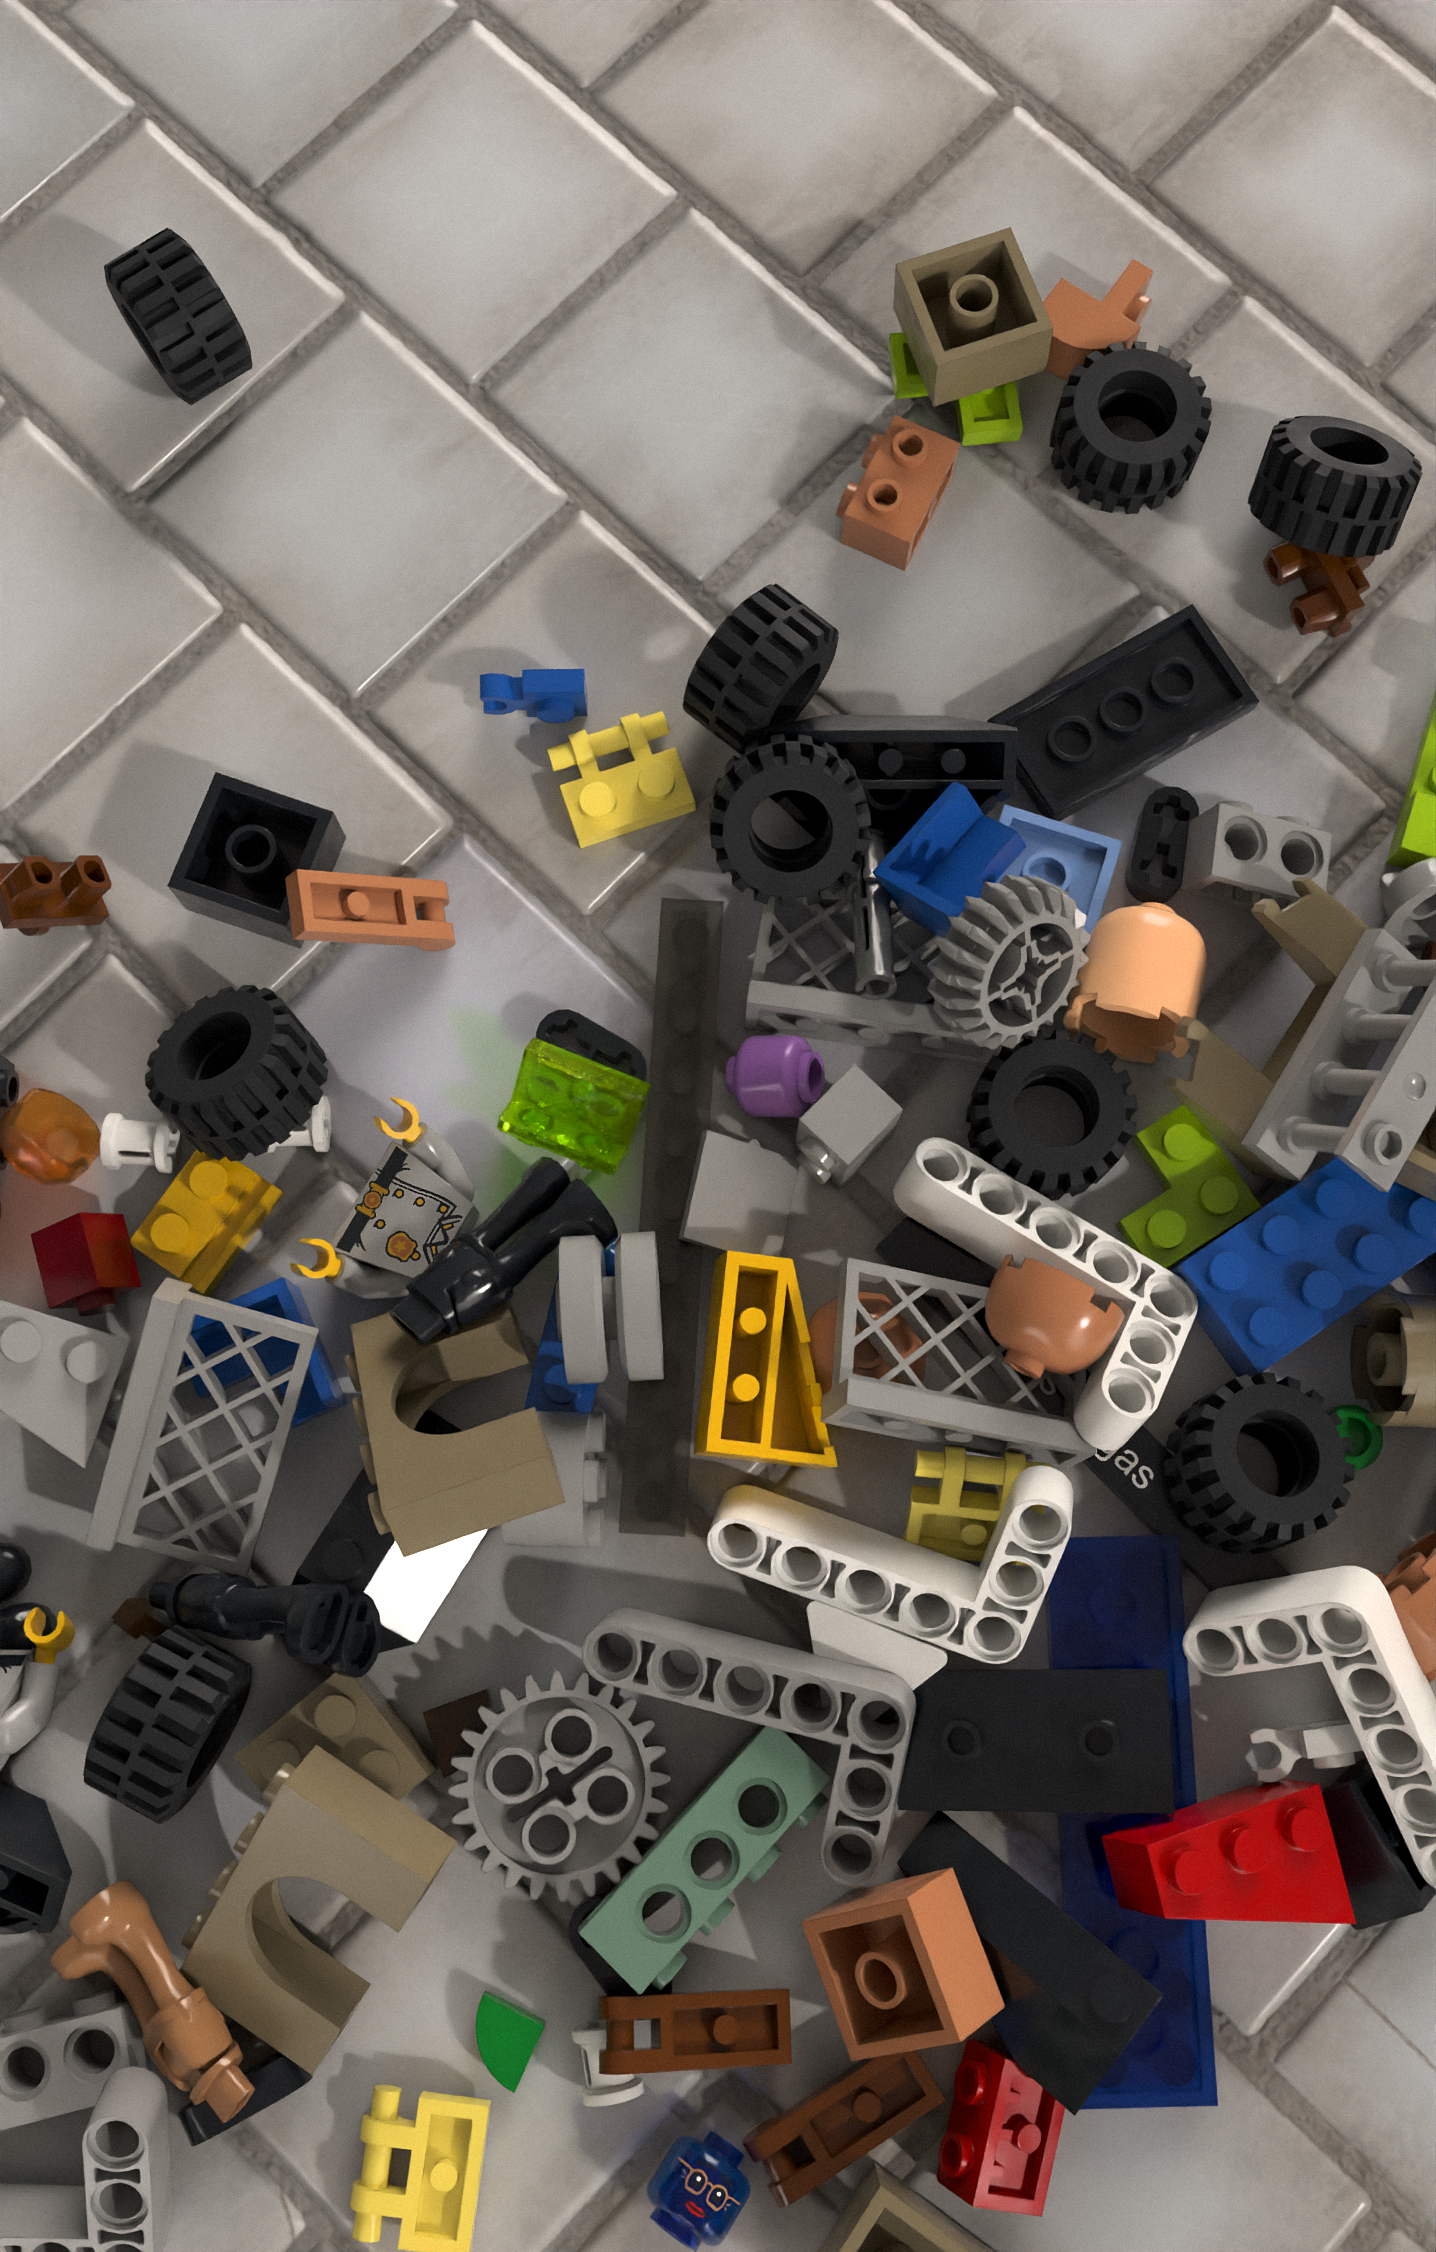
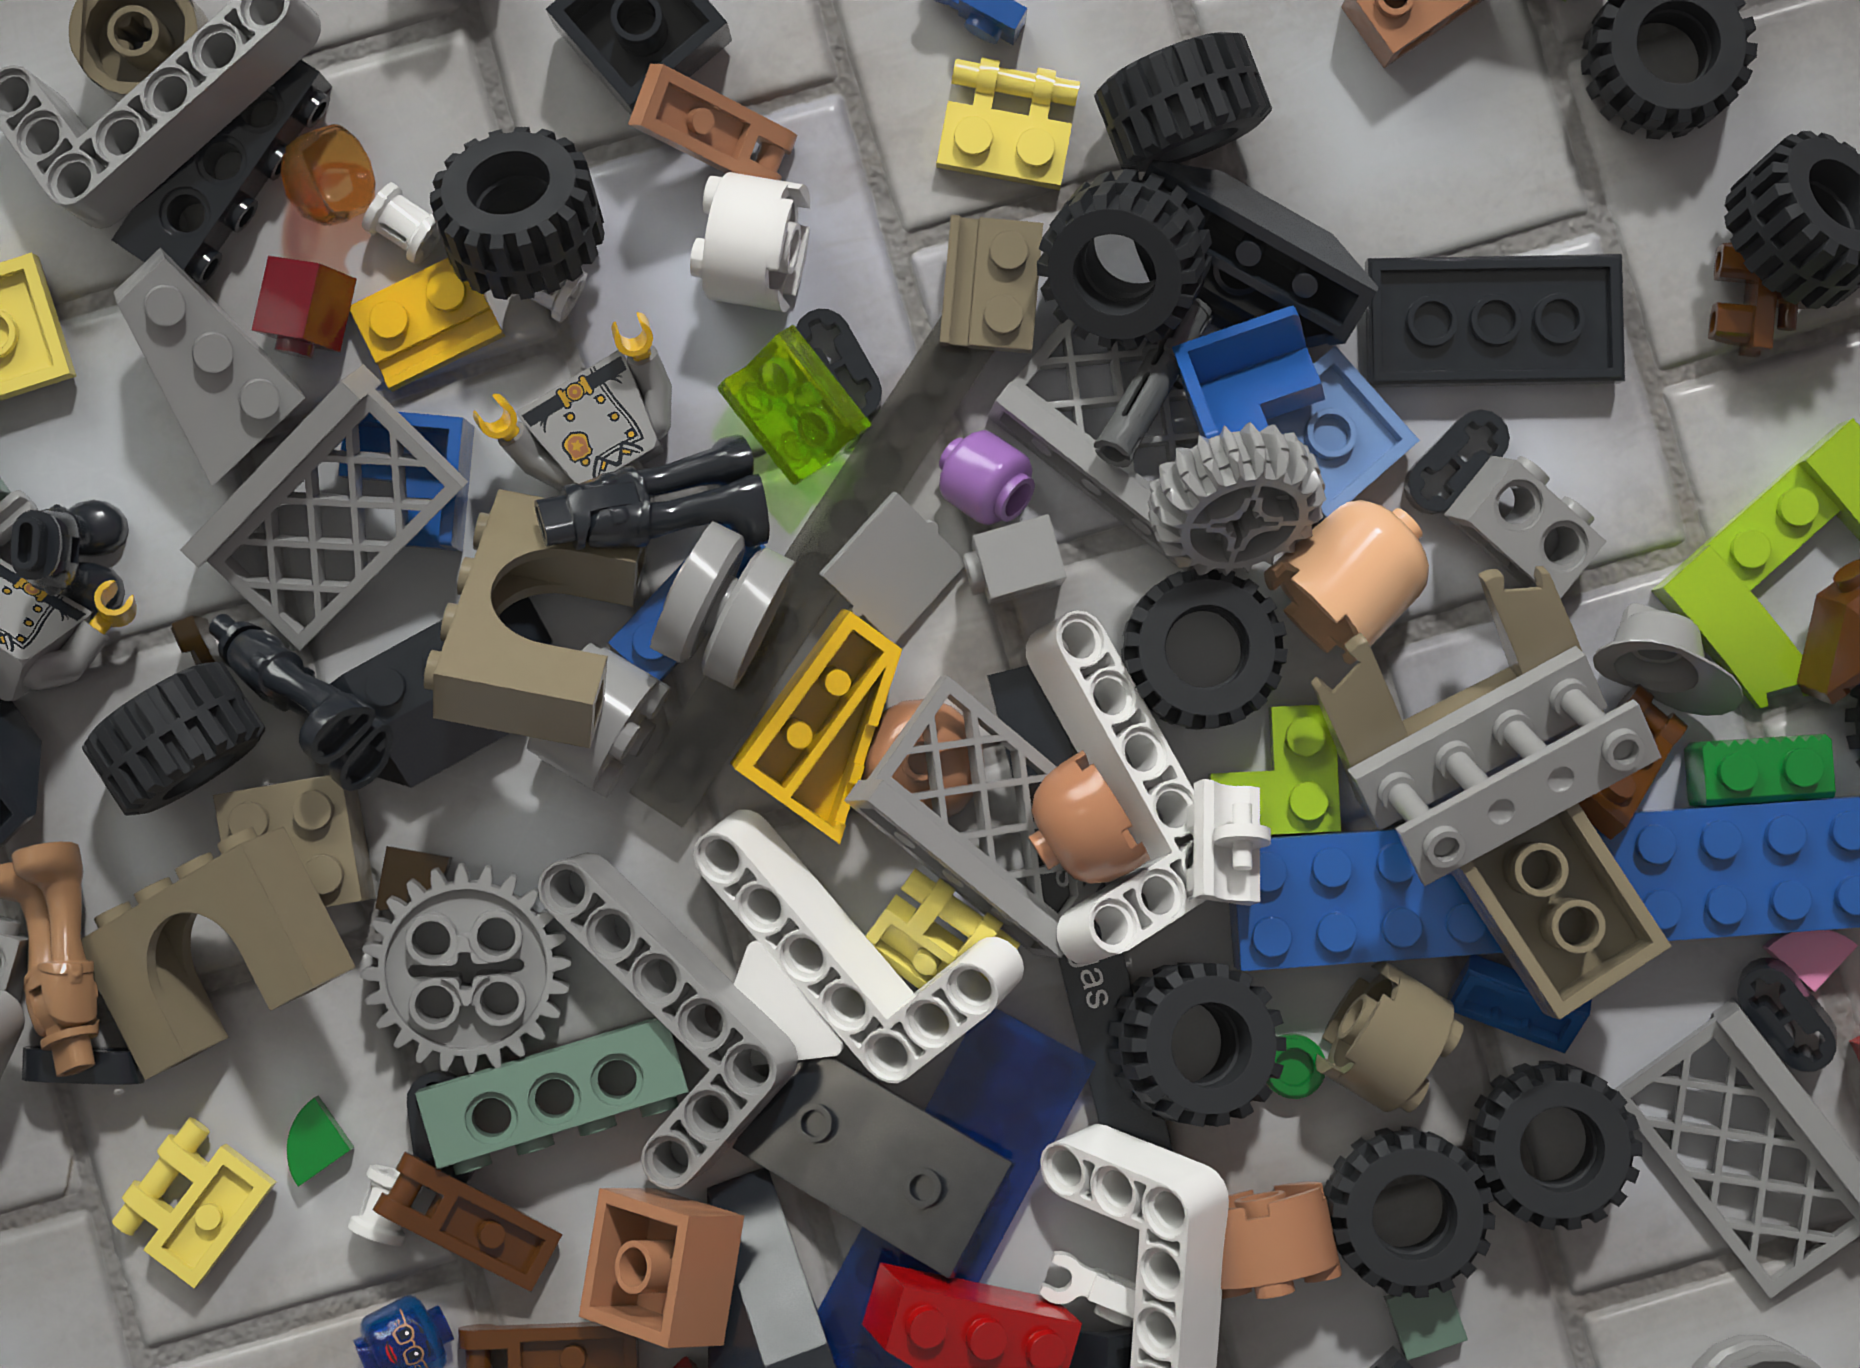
camera: 30 degrees right, 10 degrees up
(457, 986) = (751, 241): none -> white brick
(685, 910) = (991, 284): none -> dark tan plate
(1180, 1264) = (1226, 843): none -> white hips

